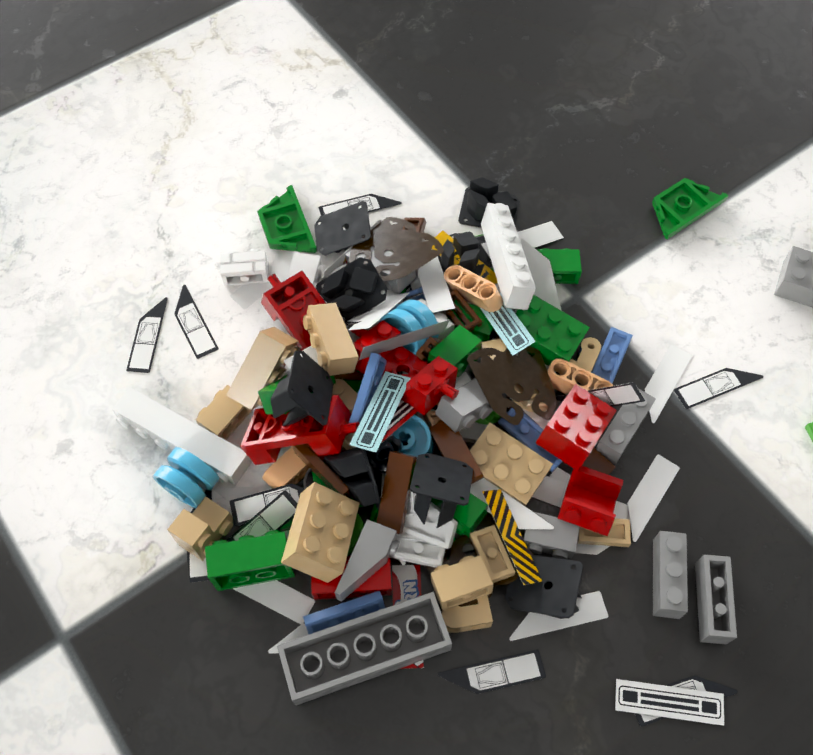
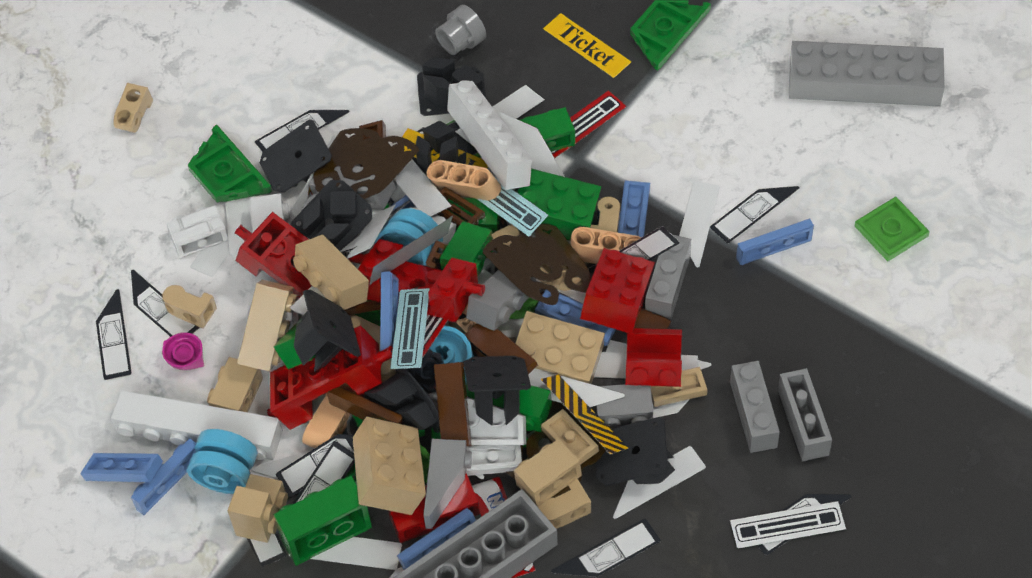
camera: 15 degrees left, 5 degrees down
(104, 455) = (121, 467): none -> medium blue plate
(135, 476) = (168, 474): none -> medium blue plate
(195, 367) = (183, 351): none -> dark pink hat
(214, 330) = (188, 306): none -> tan leg
(232, 153) = (132, 107): none -> tan leg
(512, 161) = (461, 30): none -> light grey piece
(600, 263) = (593, 116): none -> sticker
(613, 202) = (587, 45): none -> yellow sticker
(649, 493) = (714, 337): white sticker -> none
(729, 421) = (774, 241): none -> medium blue tile

